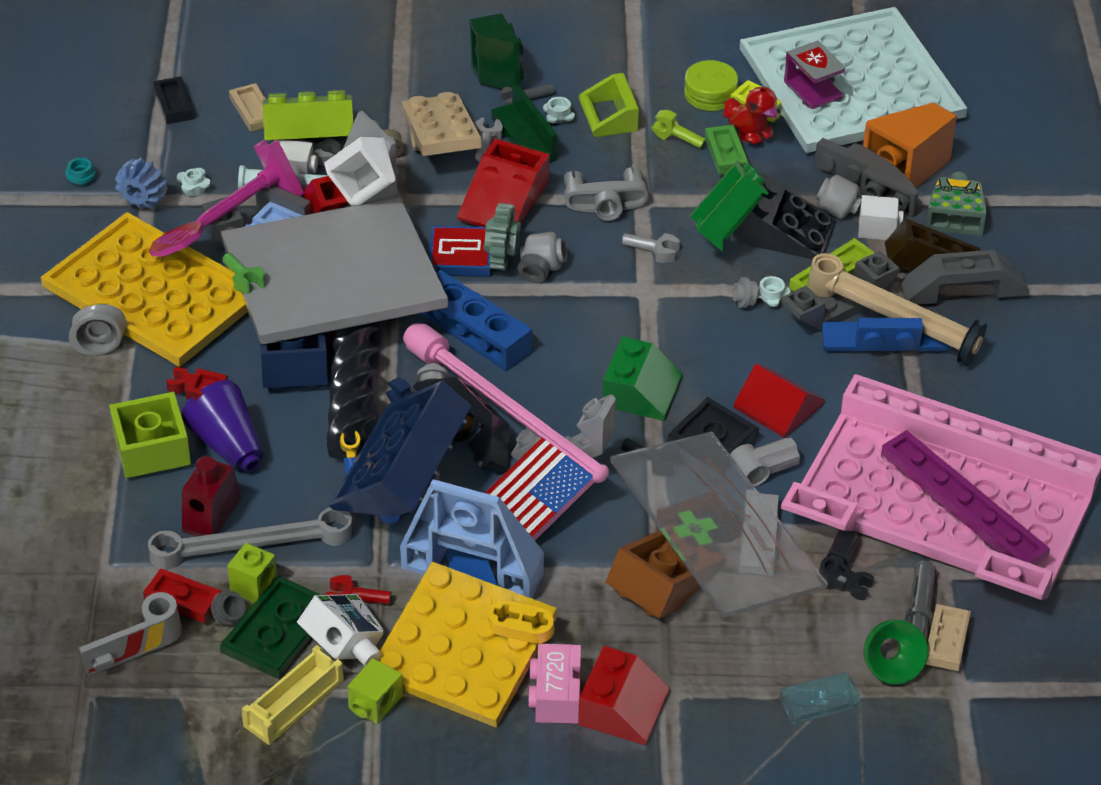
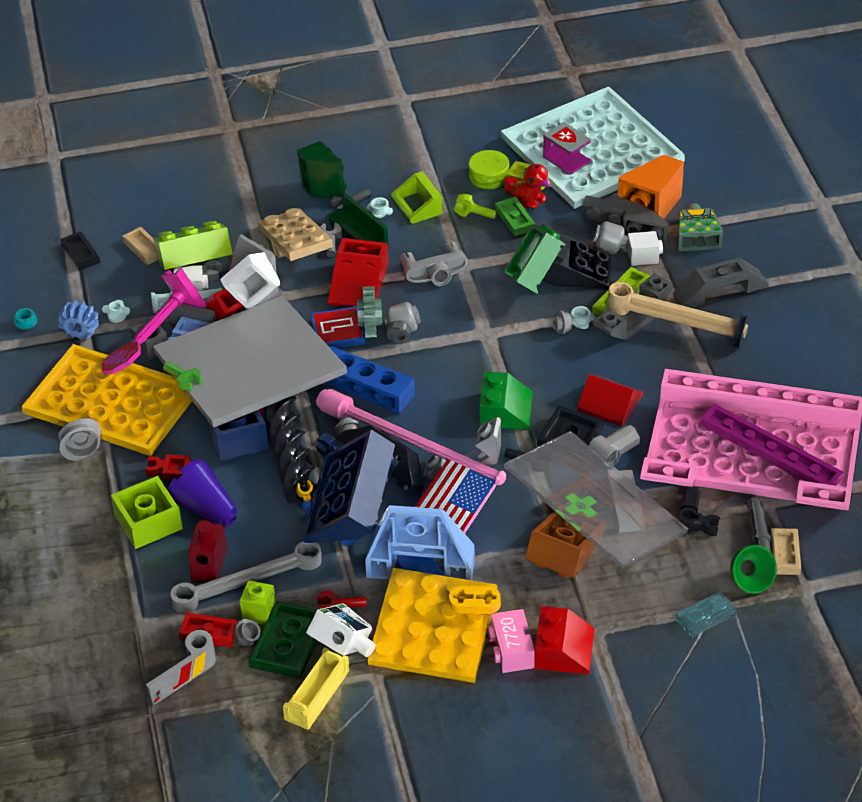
camera: 10 degrees left, 0 degrees up
(375, 691) = (377, 673): lime brick -> none
(663, 248) = (491, 298): light grey bar -> none
(879, 335) = (670, 336): blue bracket -> none
(915, 243) = (678, 263): dark brown slope -> none

